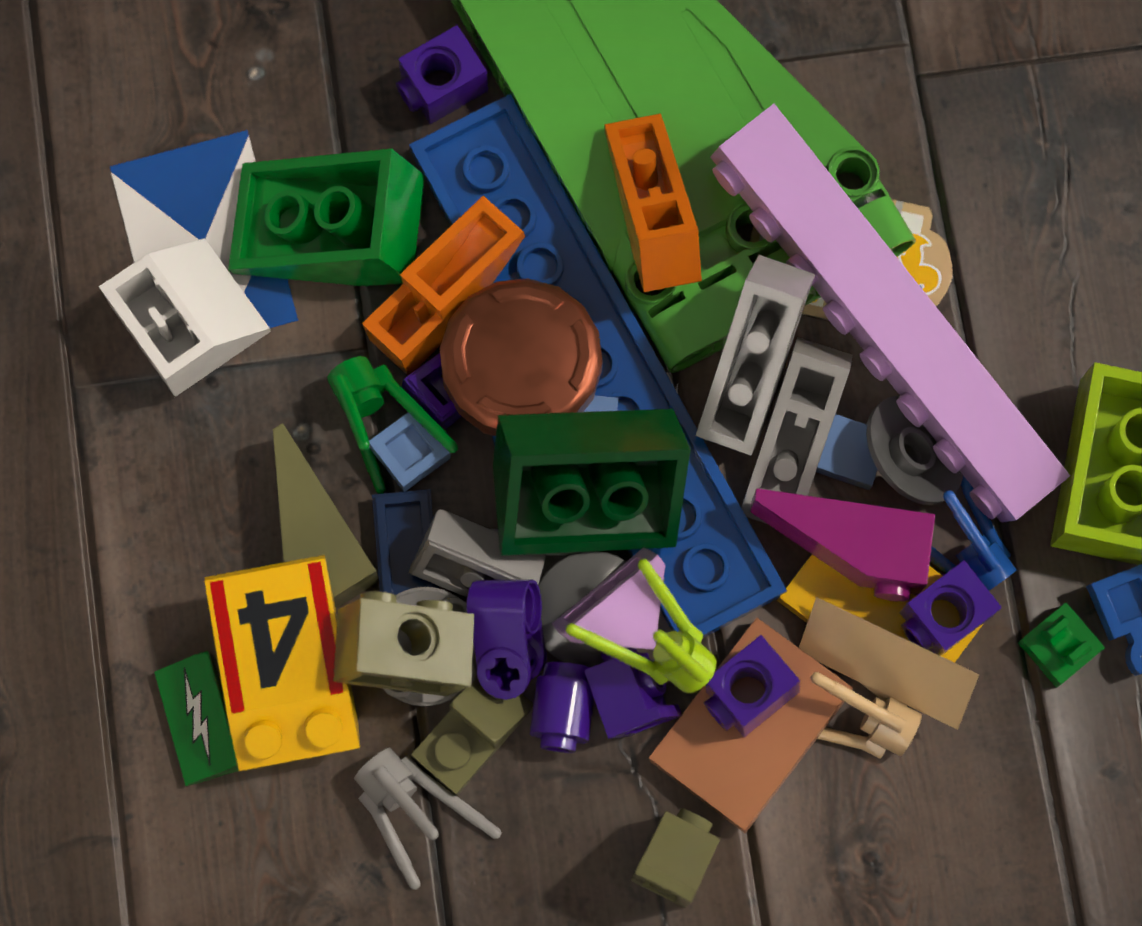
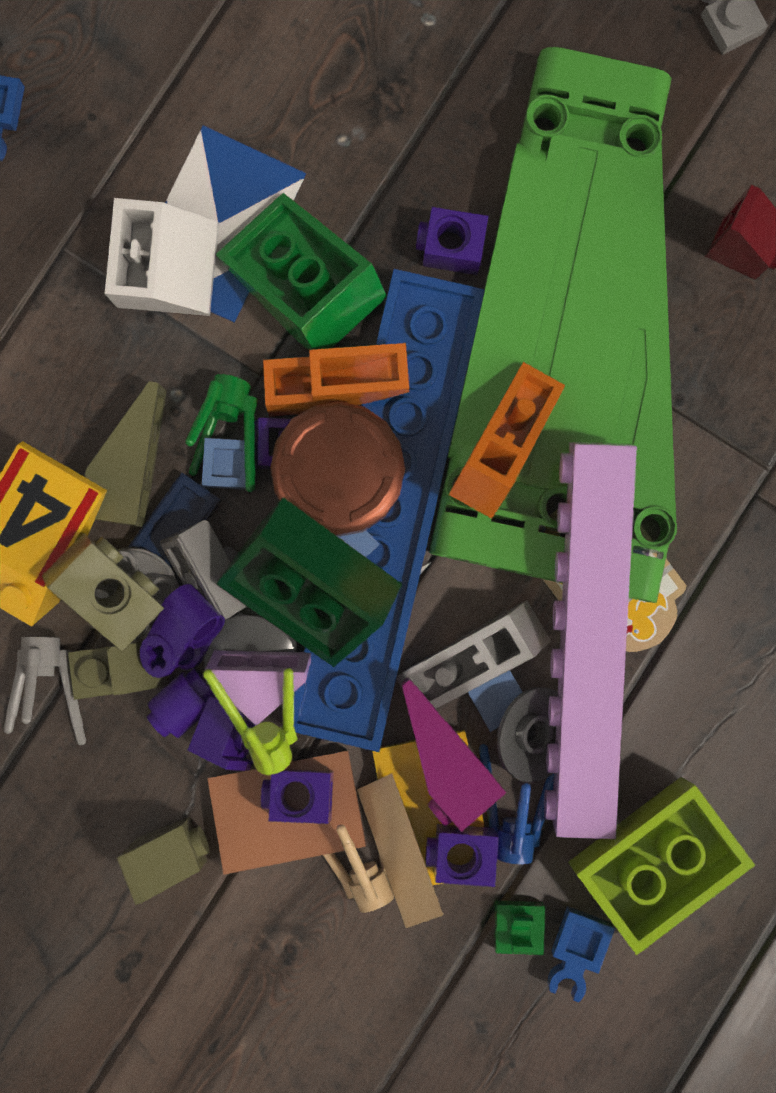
camera: 40 degrees right, 10 degrees up
(754, 354) = (485, 593): light grey brick -> none

